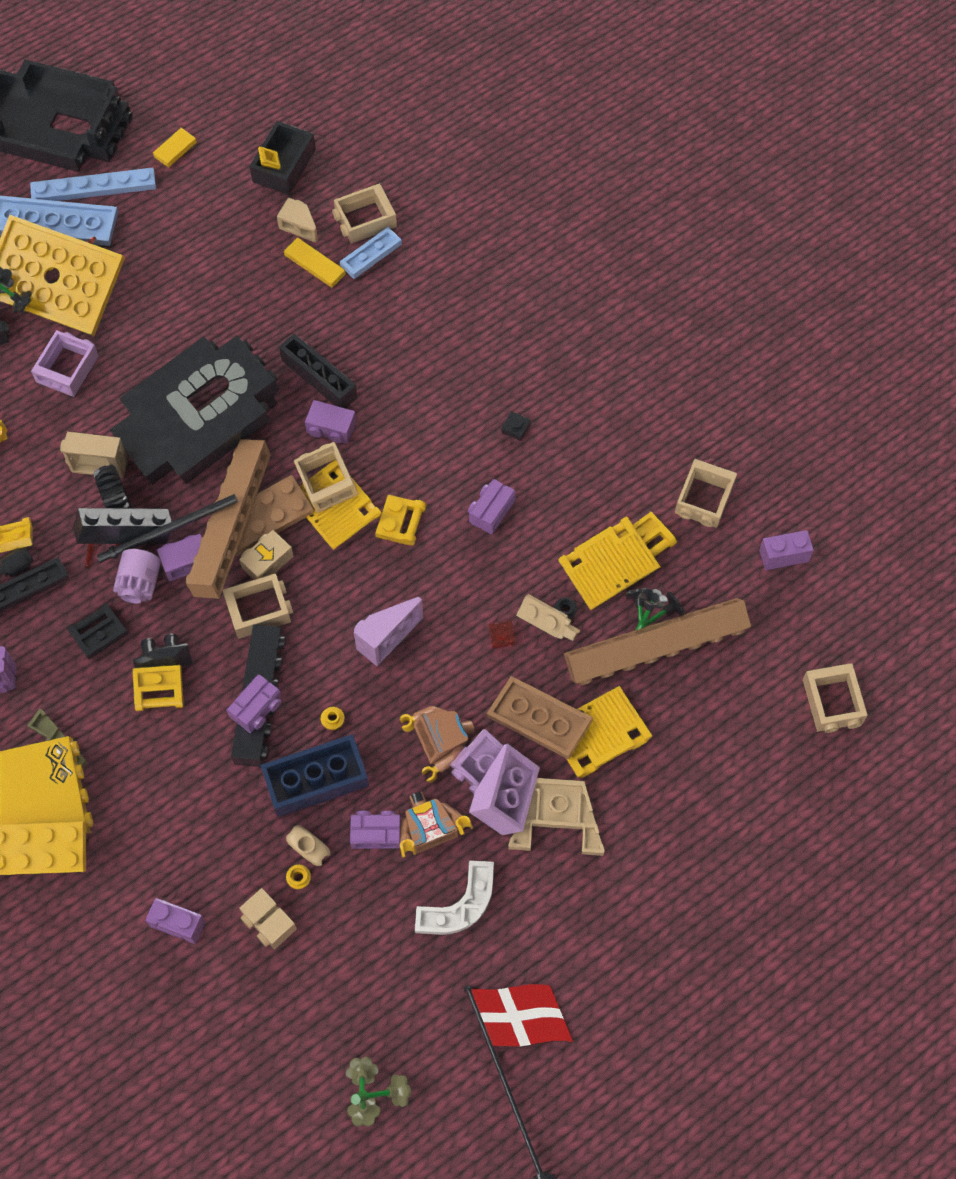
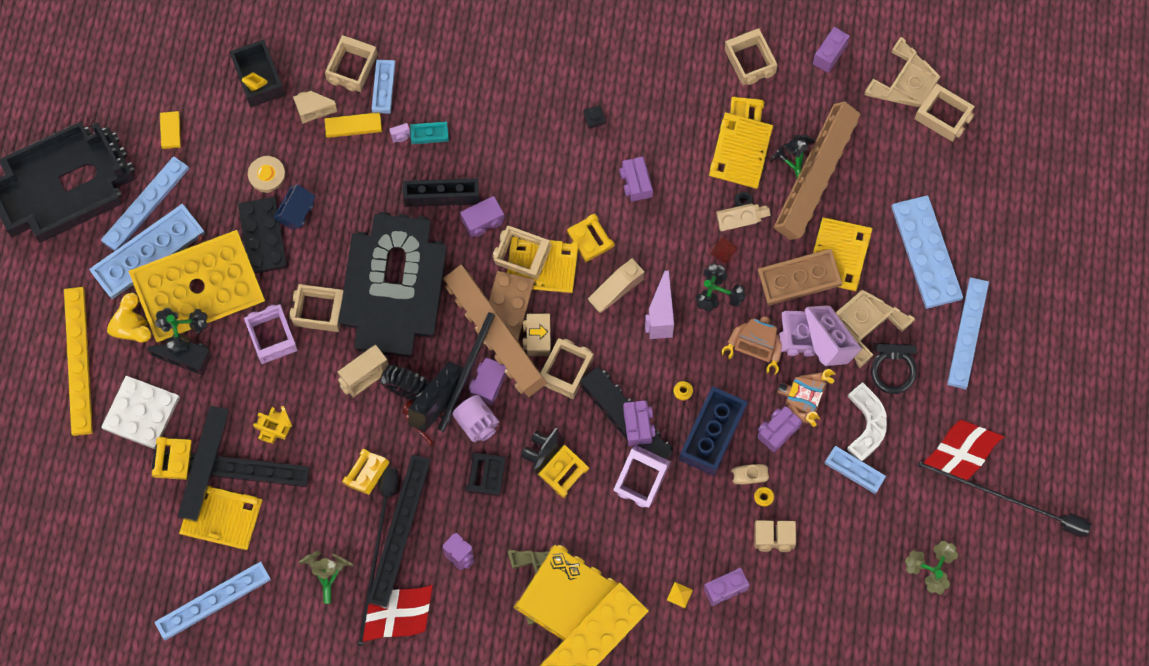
camera: 45 degrees left, 5 degrees up
(112, 360) = (320, 292): none -> tan window
(134, 889) = (679, 595): none -> yellow slope
(149, 285) = (262, 235): none -> black plate
(194, 283) = (295, 207): none -> dark blue brick
(206, 241) = (266, 174): none -> tan tile
(230, 749) = (649, 459): none -> lavender window
(341, 299) = (400, 133): none -> lavender plate
(365, 319) = (429, 132): none -> teal plate
(377, 578) = (617, 285): none -> tan slope
(402, 933) = (855, 469): none -> light blue plate
(443, 662) = (715, 275): none -> black plant
(550, 862) = (894, 351): none -> black tile
(642, 914) = (968, 333): none -> light blue plate
(683, 806) = (927, 252): none -> light blue plate
(833, 643) = (912, 83): none -> tan wing

